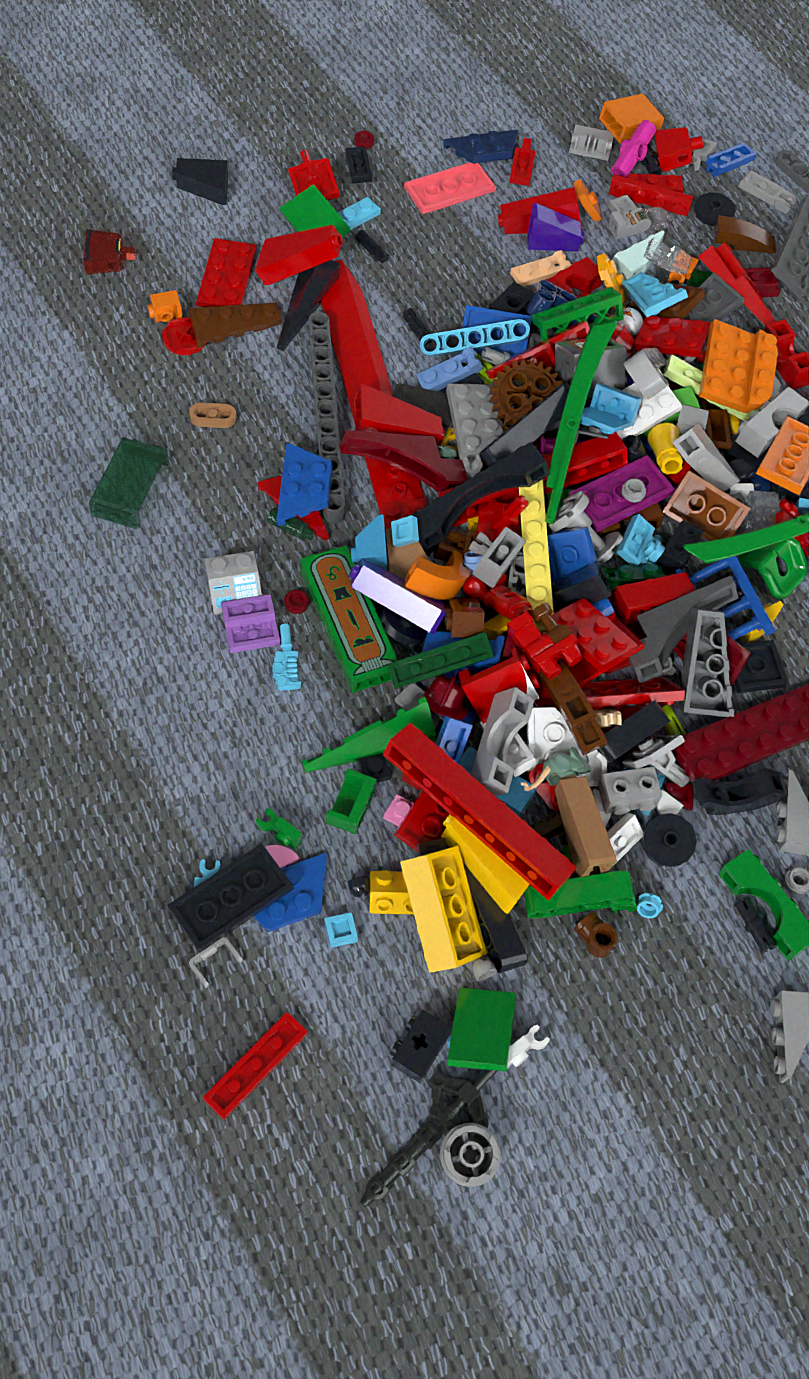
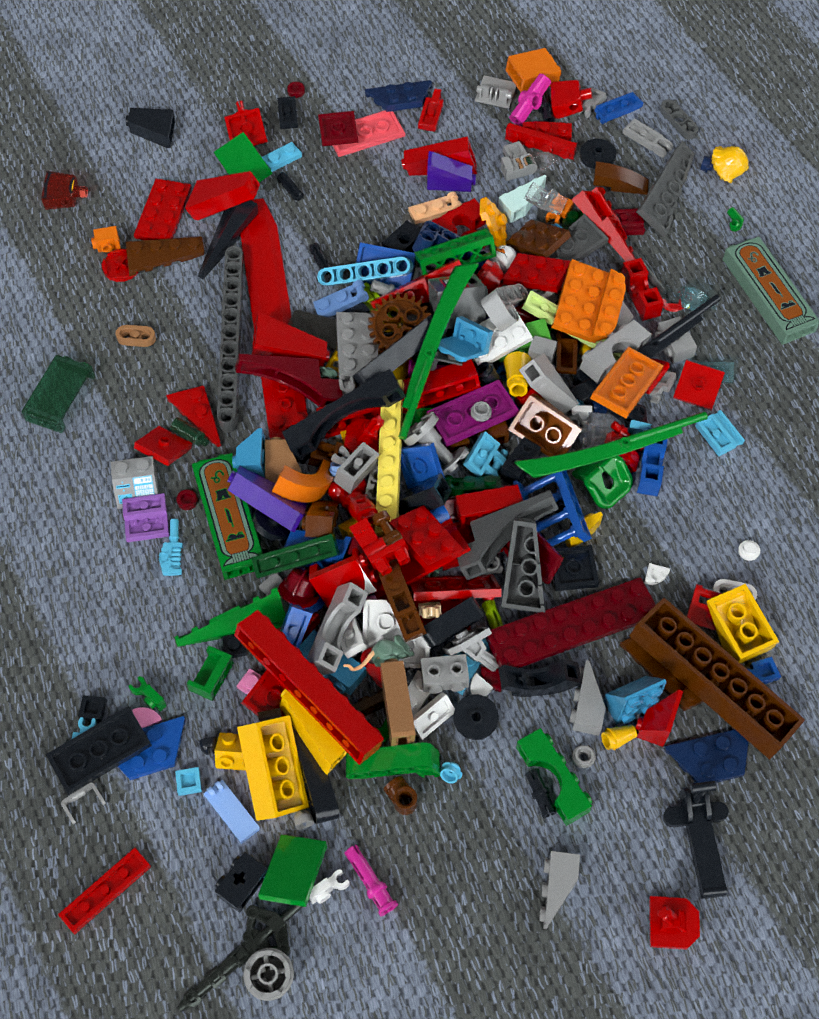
camera: 10 degrees right, 0 degrees up
(214, 848) = (92, 707): none -> black plate
(262, 539) = (163, 445): none -> red plate
(303, 484) = (202, 398): blue wing -> none
(396, 963) = (231, 811): none -> light blue hinge
(405, 531) = (279, 443): medium azure plate -> none
(420, 181) = (338, 128): none -> dark red plate
(580, 1046) = (376, 889): none -> dark pink pin
(588, 200) = (482, 146): orange plate -> none
(652, 295) = (524, 234): medium azure wing -> none
(653, 551) = (495, 464): medium azure plate -> none

